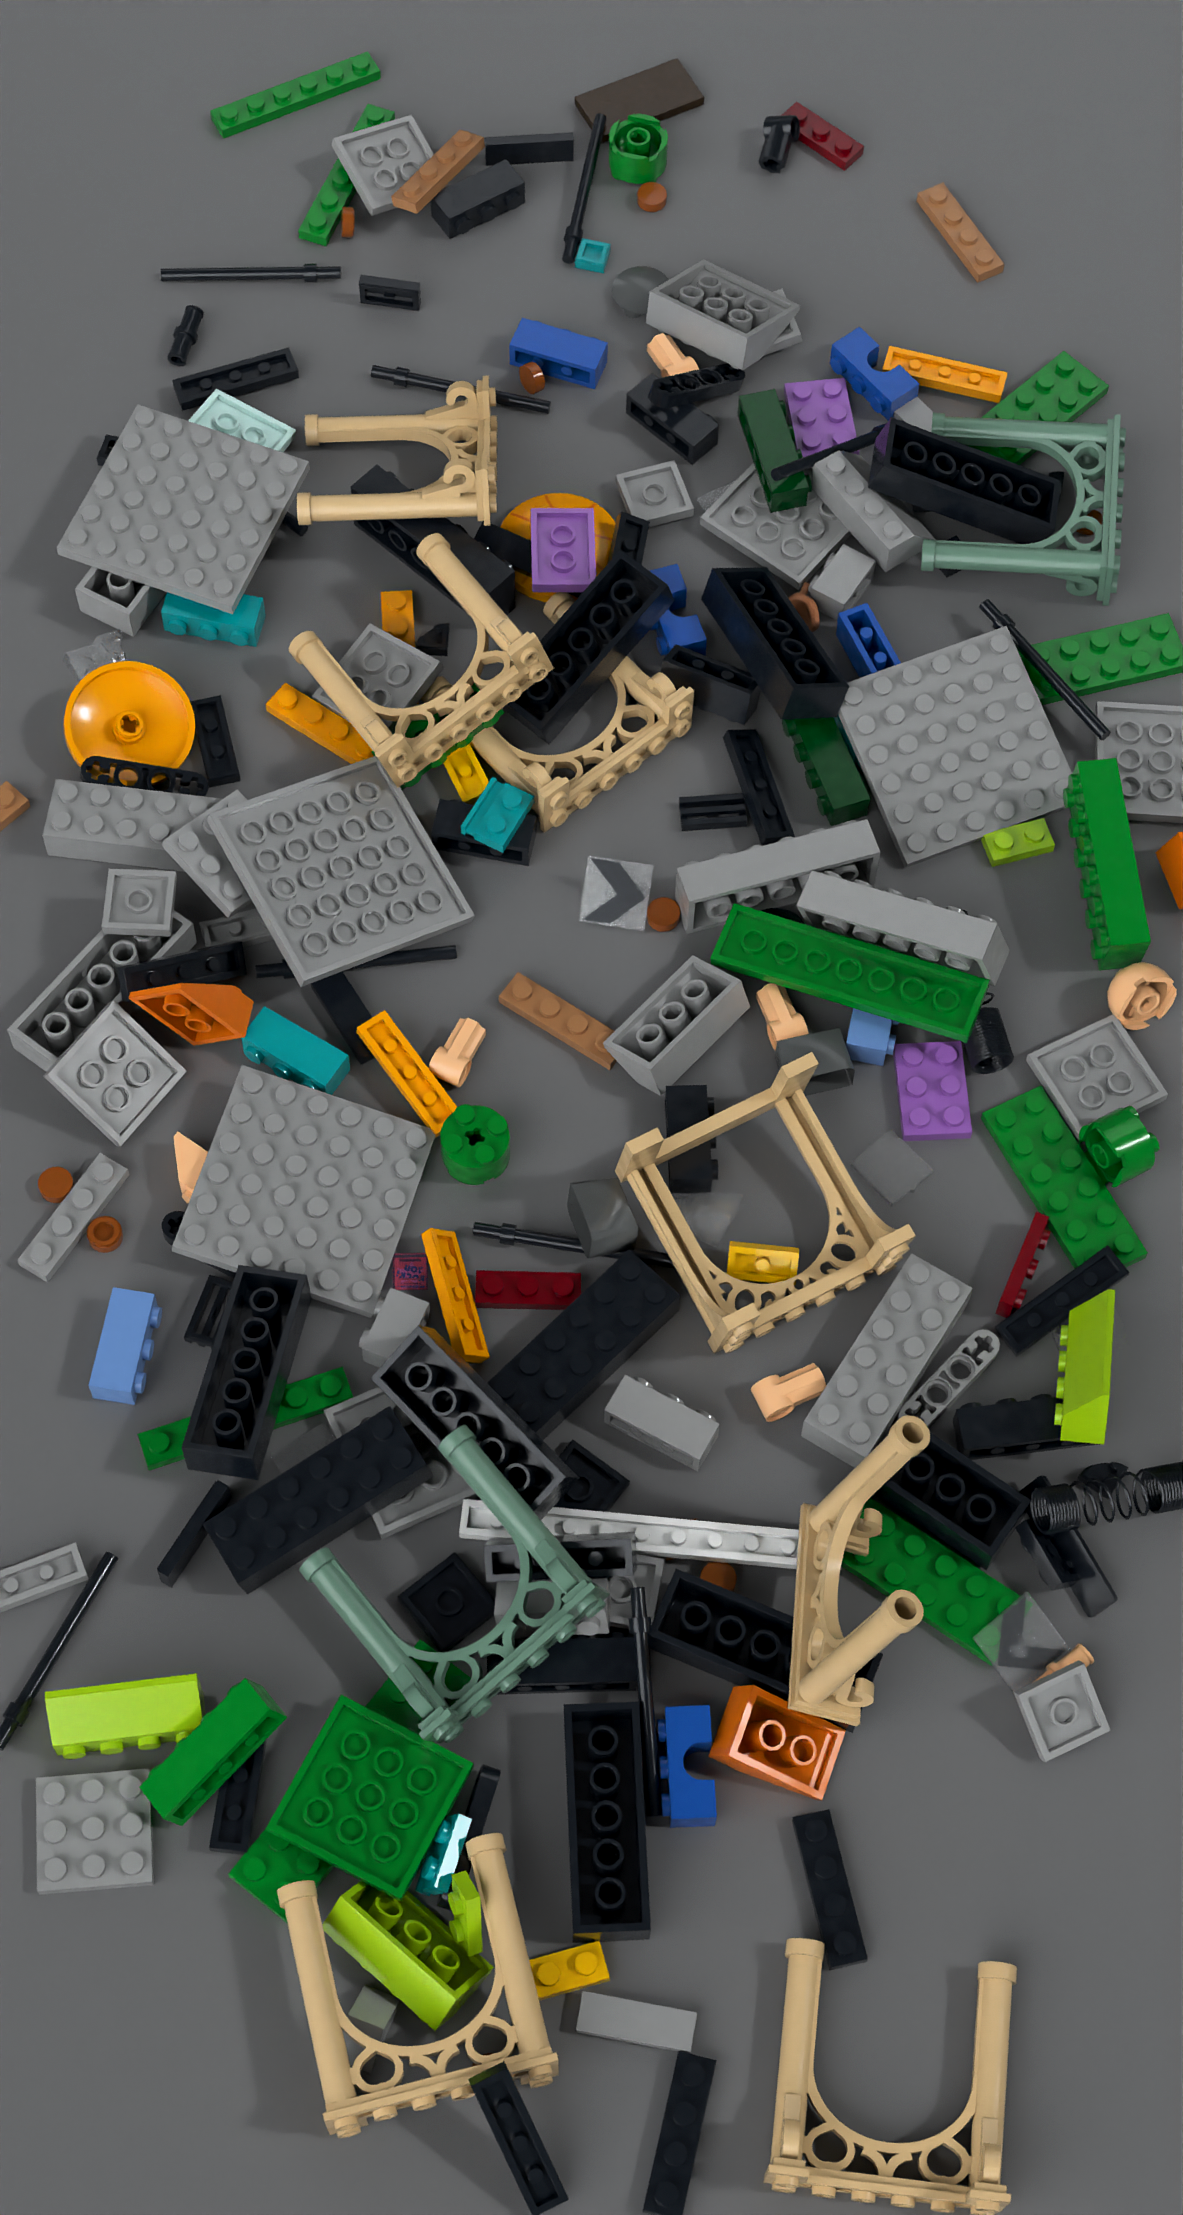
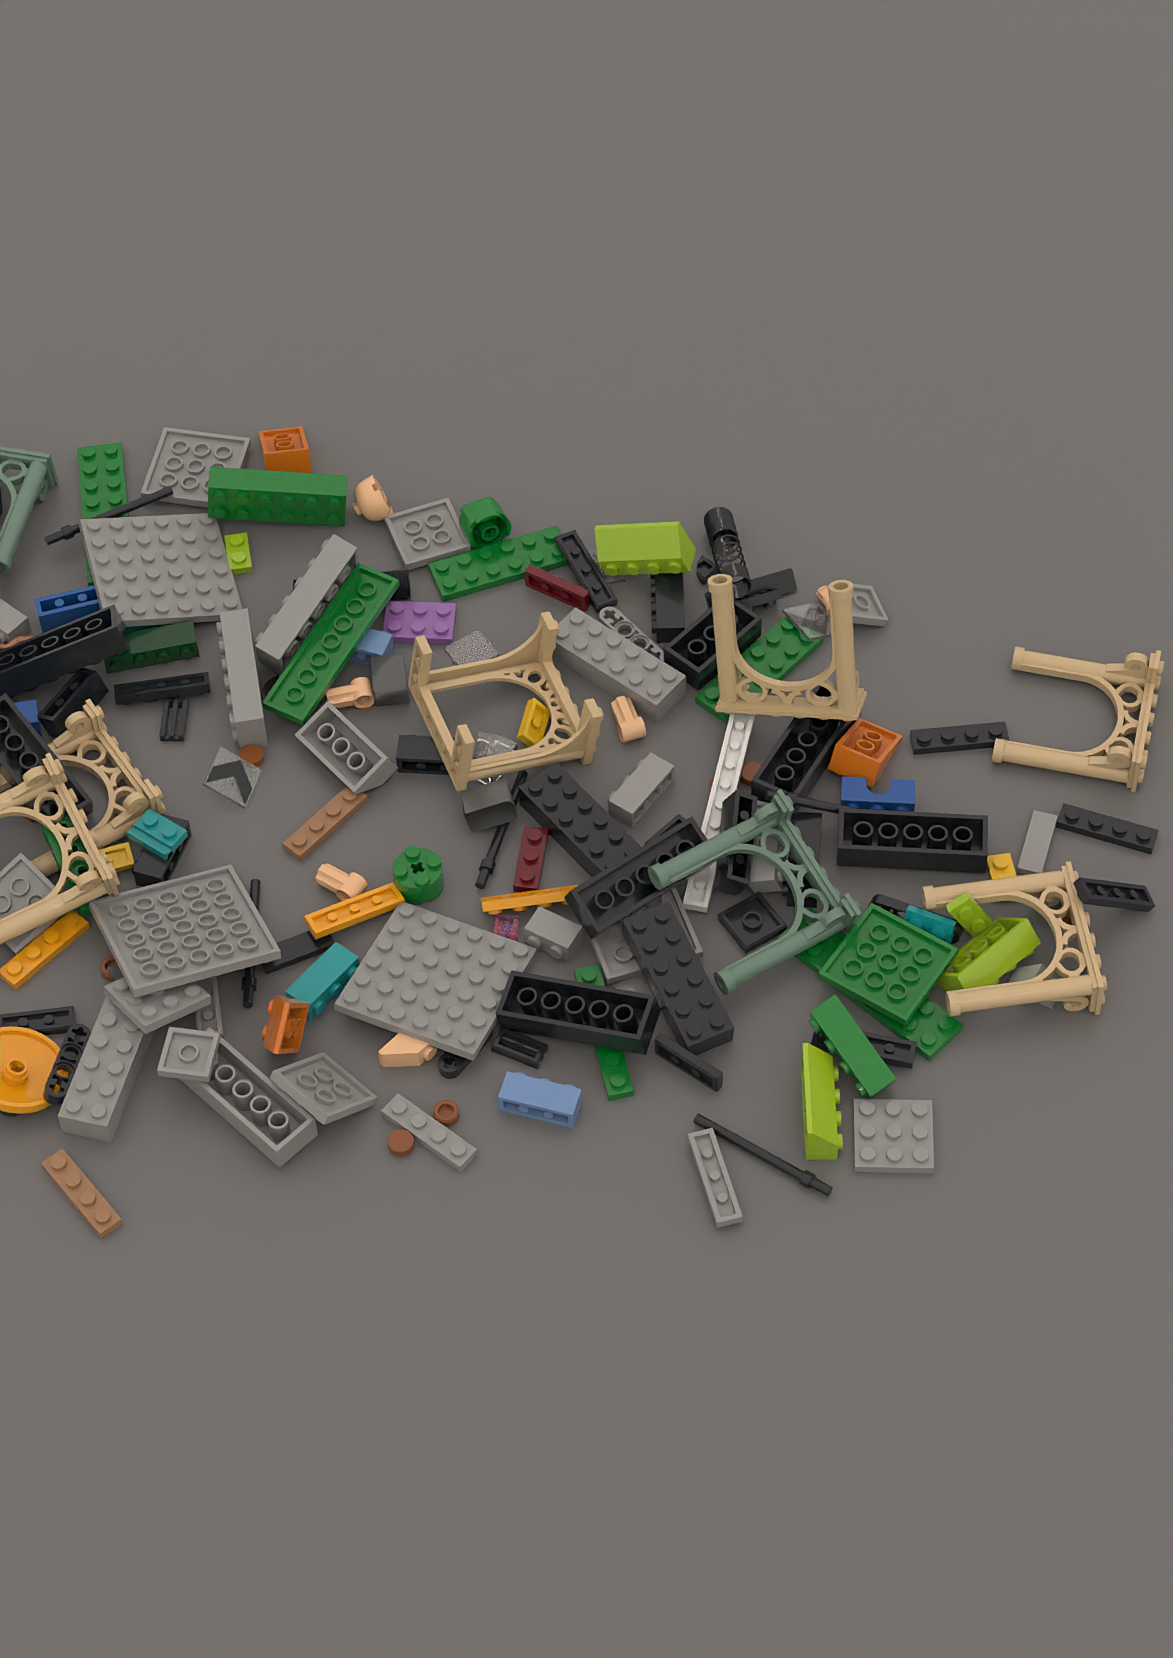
camera: 80 degrees left, 10 degrees down
(194, 966) = (247, 1039): black plate -> none

